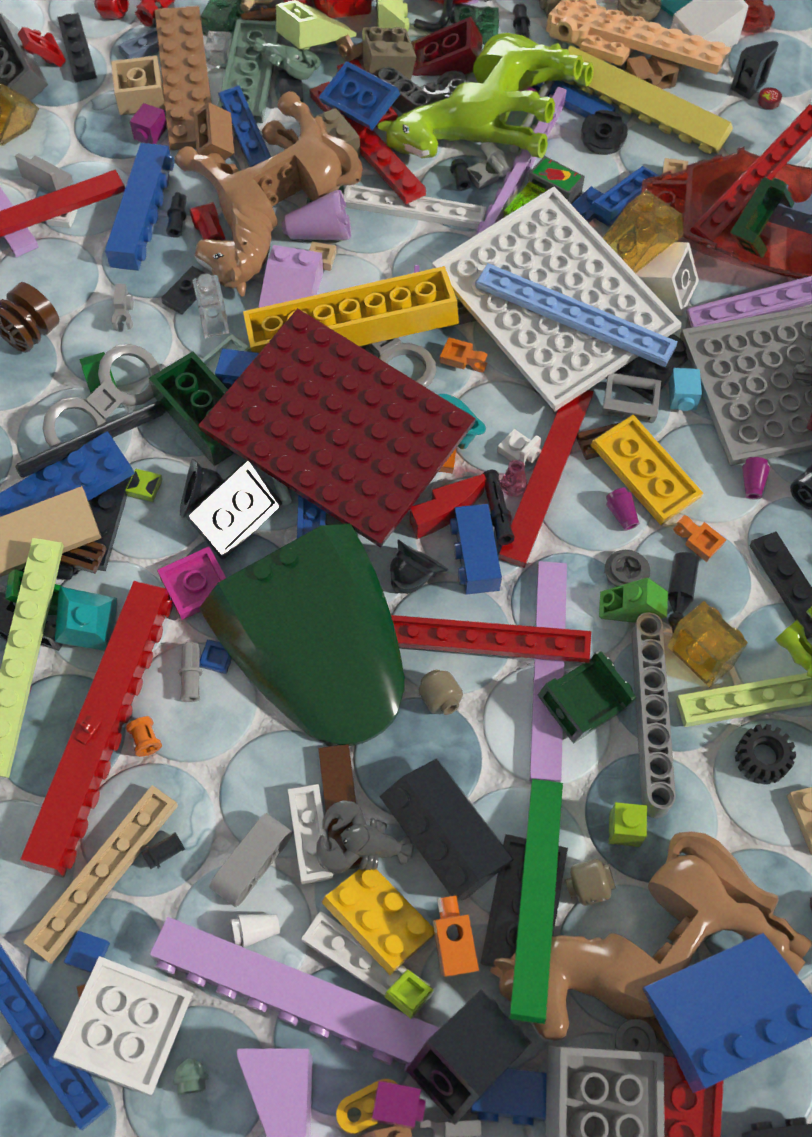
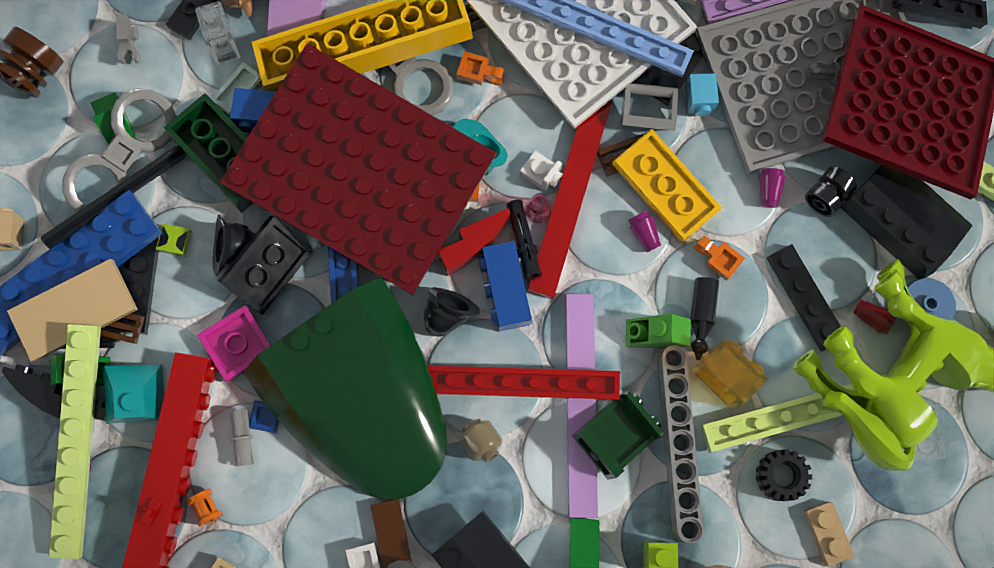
camera: 10 degrees left, 15 degrees up
(634, 562) = (659, 287): dark grey gear -> none

